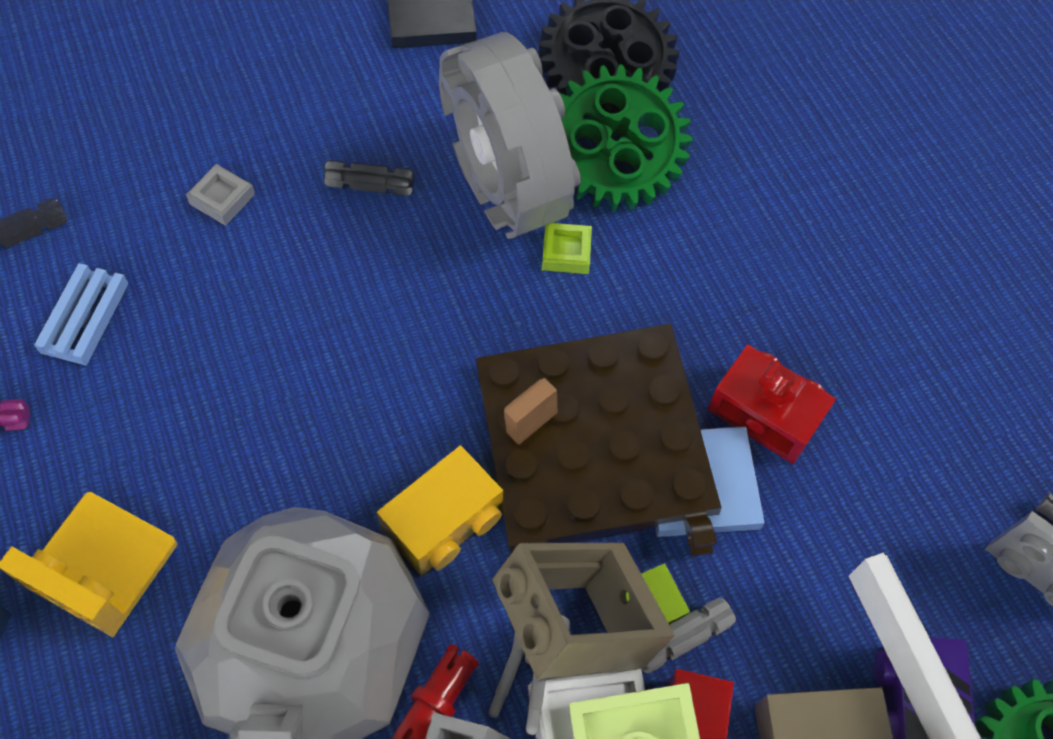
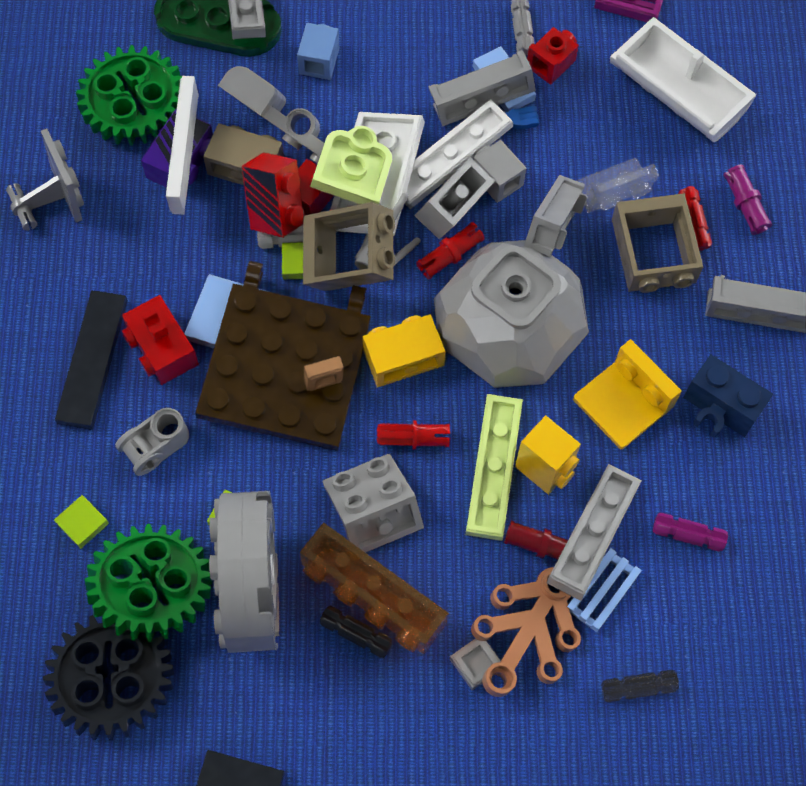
camera: 155 degrees left, 5 degrees up
(102, 363) = (594, 532): none -> light grey tile
(166, 236) = (531, 625): none -> nougat plant
(170, 334) = (534, 540): none -> dark red pin
(185, 416) = (548, 456): none -> yellow brick
(265, 417) = (494, 467): none -> yellowish green tile
(361, 204) = (373, 588): none -> clear orange brick
(383, 407) = (412, 434): none -> red axle
(409, 310) = (374, 503): none -> light grey bracket
(703, 281) = (152, 442): none -> light grey piece
(729, 184) = (81, 521): none -> lime tile
(740, 654) = (273, 194): none -> red brick
(841, 363) = (91, 360): none -> black tile

